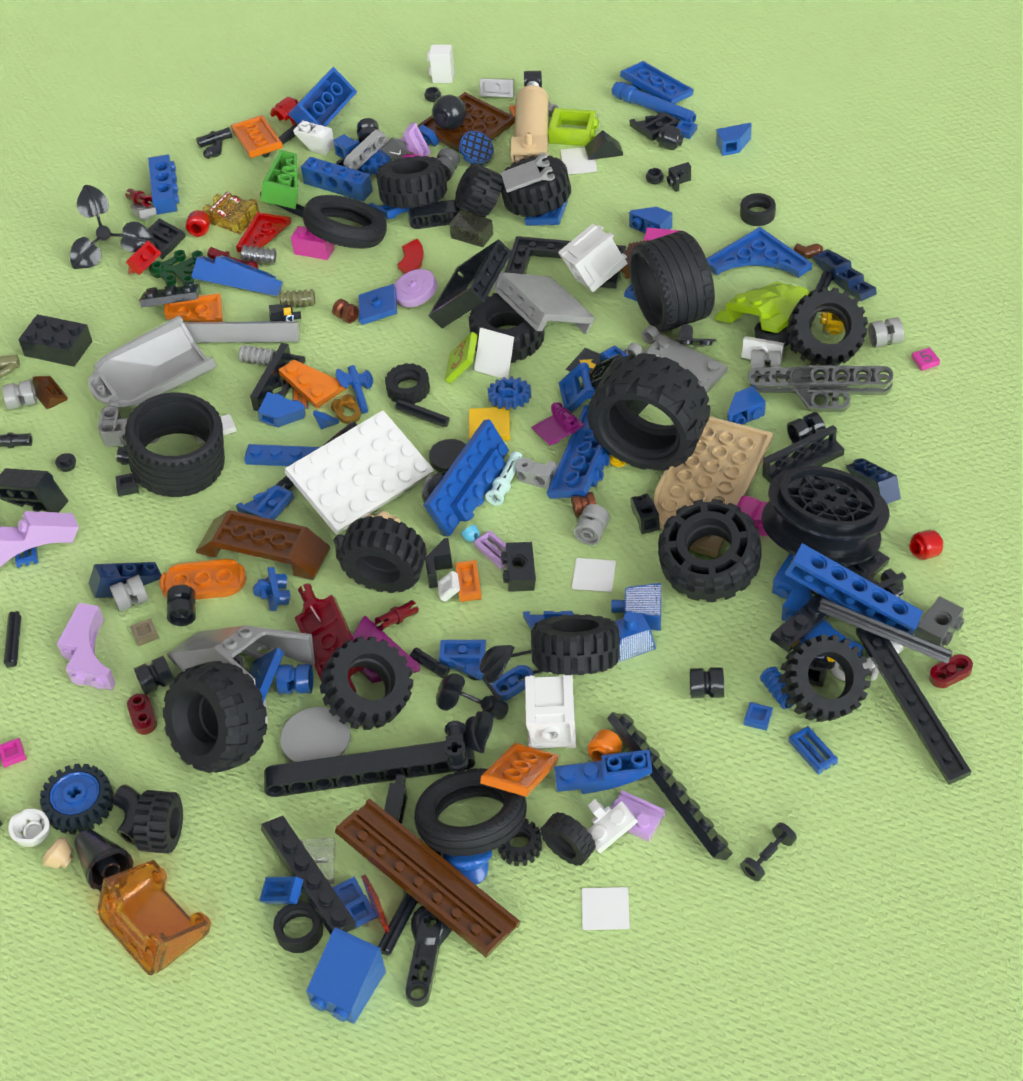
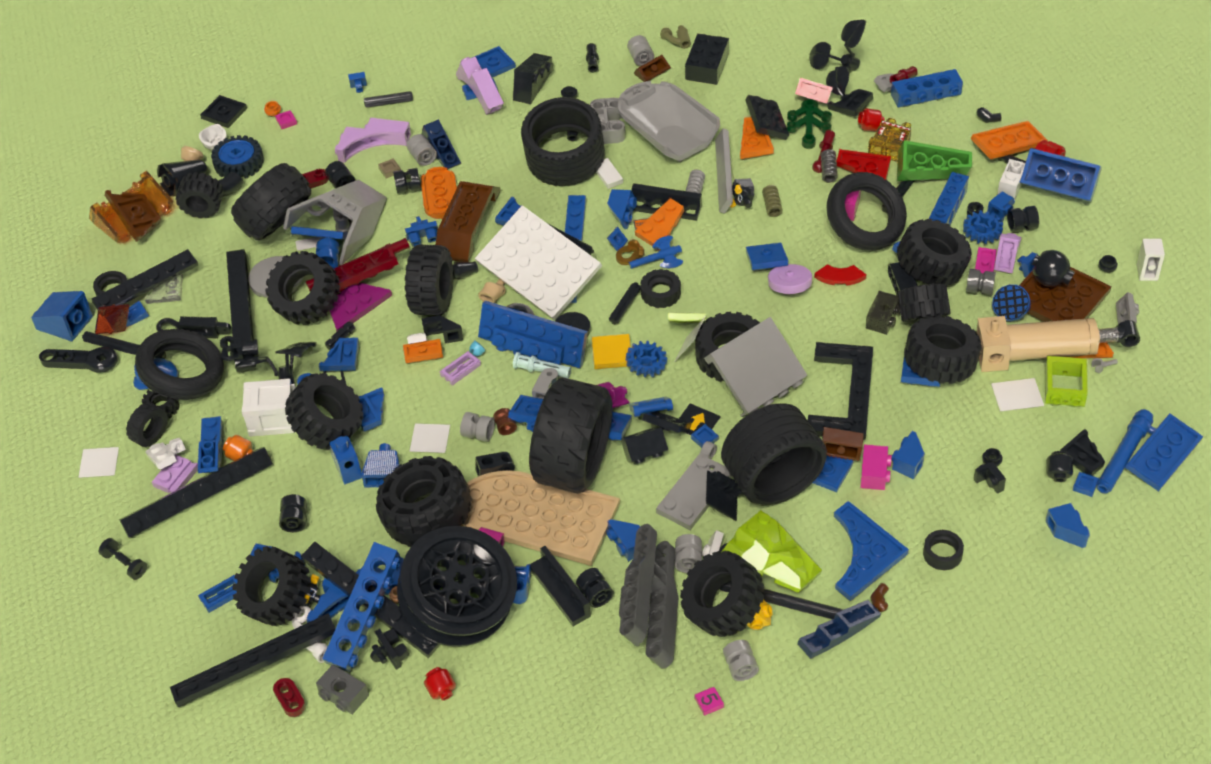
camera: 85 degrees right, 0 degrees up
(166, 905) = (135, 212): none -> reddish brown wing
(210, 138) = (1000, 106): black pin -> none
(235, 274) = (800, 154): wedge -> none
(281, 890) = (134, 271): blue plate -> none
(346, 311) = (755, 234): copper wheel -> none
(358, 157) = (978, 212): light grey beam -> none
(395, 148) = (993, 237): dark grey slope -> none
(396, 615) = (387, 308): dark red pin -> none
(428, 877) = (117, 355): reddish brown plate -> none
(478, 271) = (776, 308): black window -> none
(519, 555) = (430, 380): black brick -> none
(519, 769) = (210, 389): orange tile -> none
(527, 174) = (936, 327): light grey flag -> none
(593, 257) = (824, 398): white container -> none
(603, 147) = (1036, 412): black slope -> none
(878, 478) = (526, 644): dark blue slope -> none
(885, 630) = (317, 631): black axle -> none

